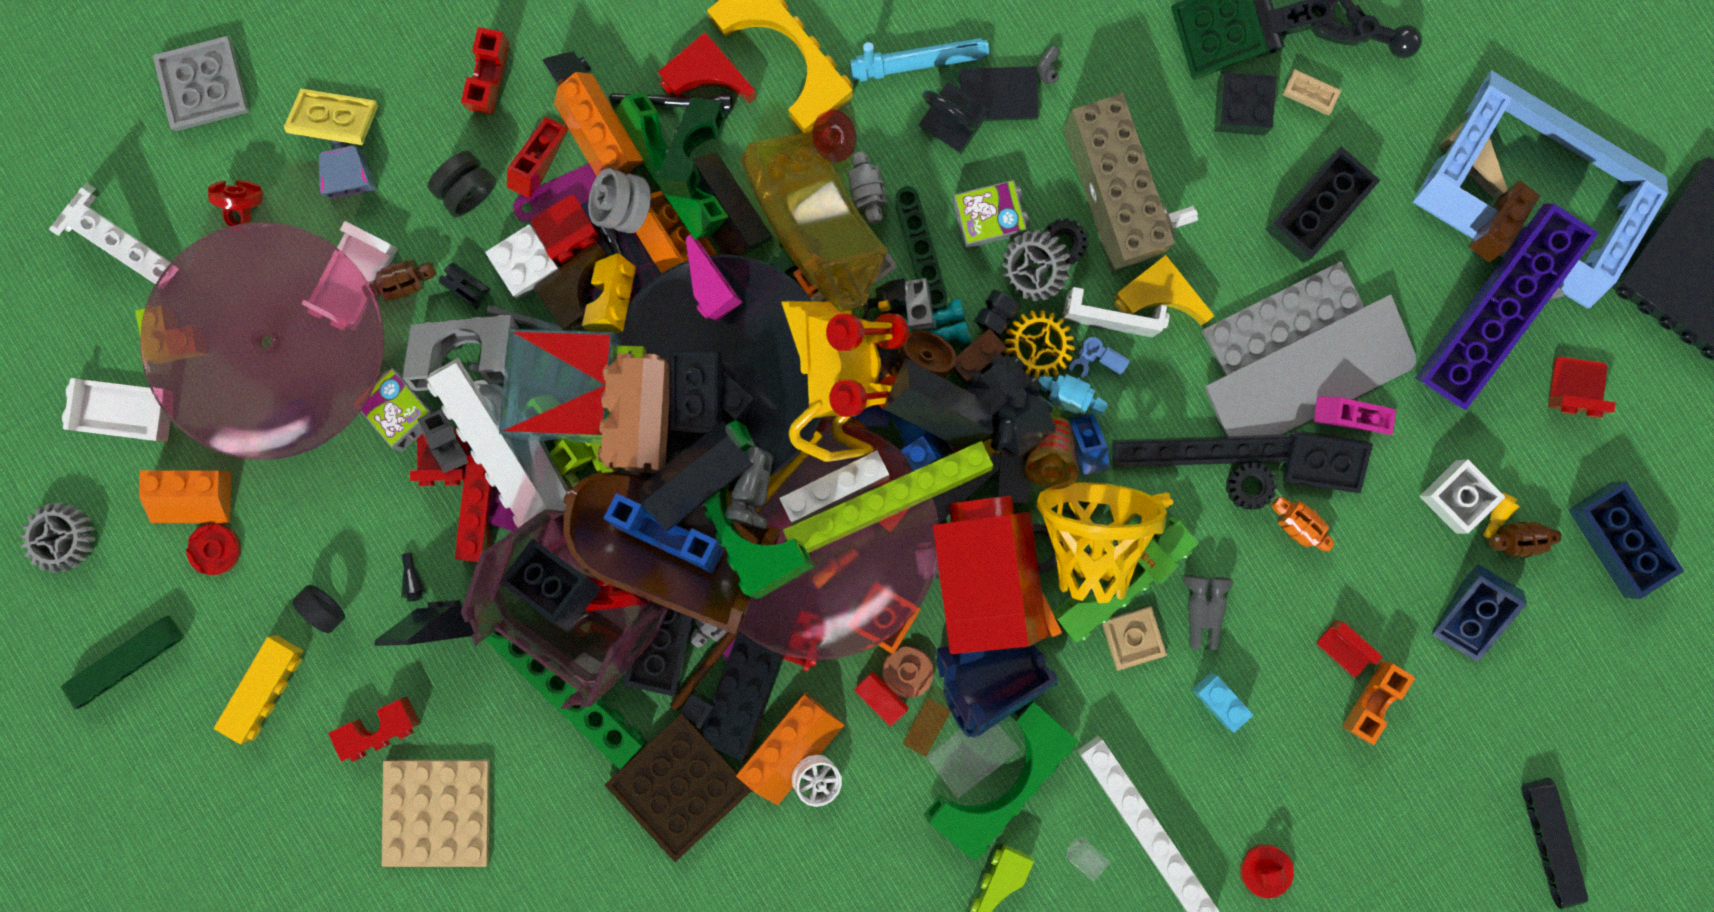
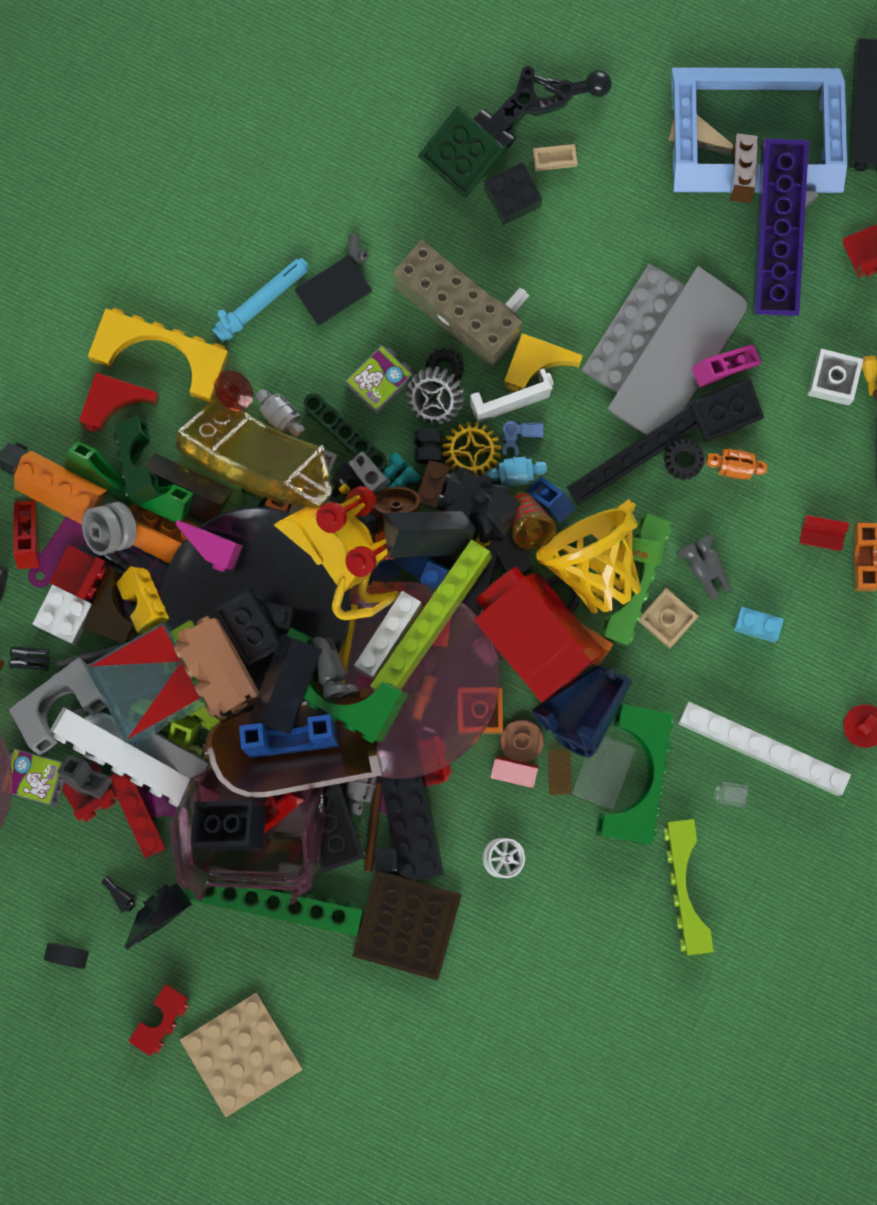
camera: 35 degrees left, 5 degrees down
(259, 689) = (56, 1043): yellow brick -> none
(678, 101) = (101, 434): black piece -> none
(799, 734) = (471, 831): orange slope -> none
(953, 116) = (310, 326): black tile -> none
(1322, 204) = (610, 232): black brick -> none

